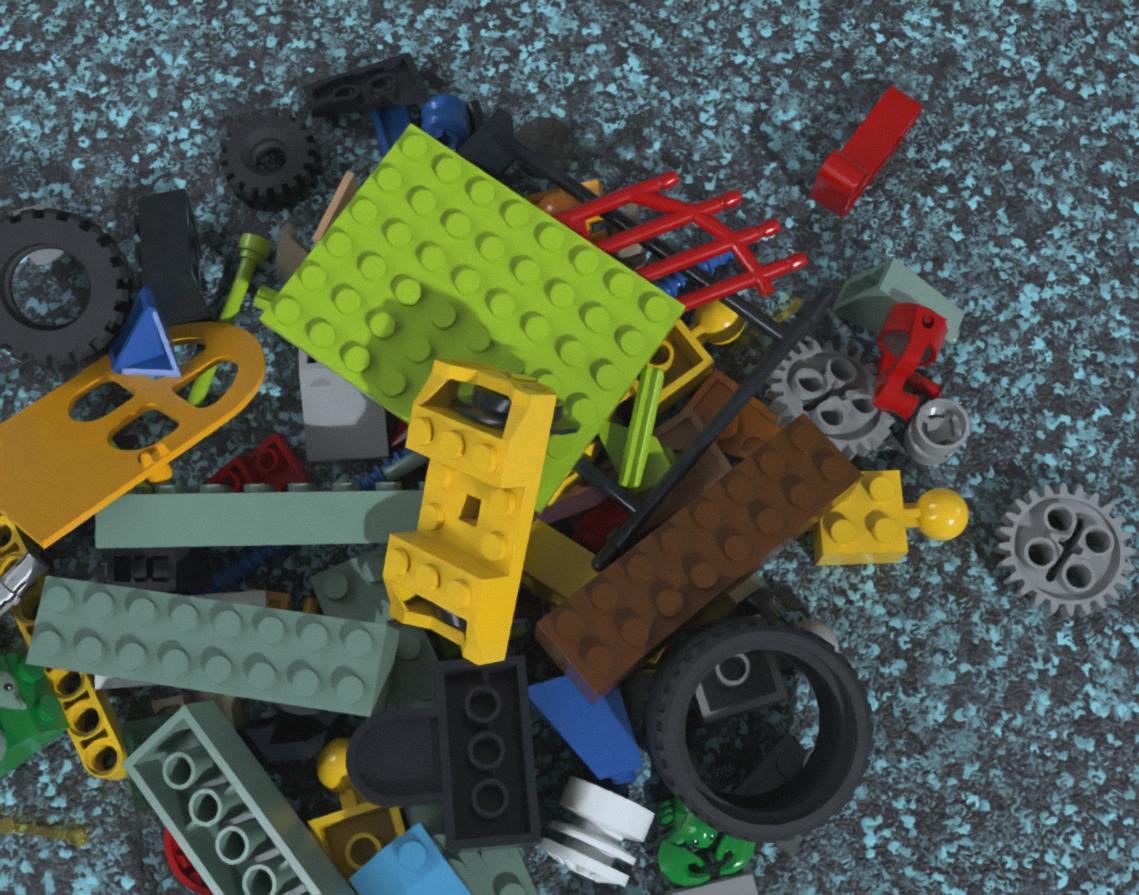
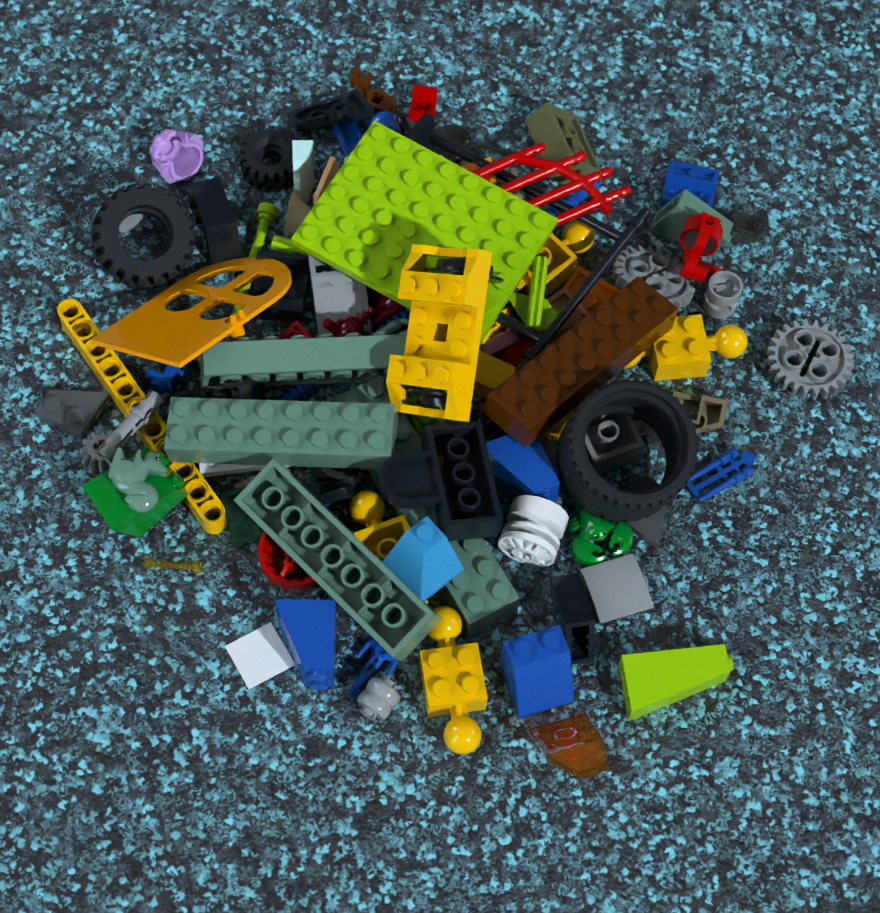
camera: 10 degrees left, 10 degrees down
(126, 148) = (177, 154): none -> lavender helmet
(144, 341) = (208, 265): blue slope -> none
(278, 395) = (292, 304): none -> black panel
(310, 185) = (303, 167): none -> light aqua slope
(349, 456) = (350, 324): none -> dark red piece
(421, 45) = (363, 86): none -> reddish brown piece
(508, 82) = (423, 100): none -> red bracket
(713, 156) = (562, 138): none -> olive slope
(745, 340) = (594, 251): clear yellow hinge -> none
(853, 168) = (652, 145): red beam -> none
(876, 631) = (706, 411): none -> dark tan slope
(902, 232) = (696, 179): none -> blue slope
(948, 712) = (747, 459): none -> blue piece
(988, 315) = (748, 227): none -> clear smoke bracket

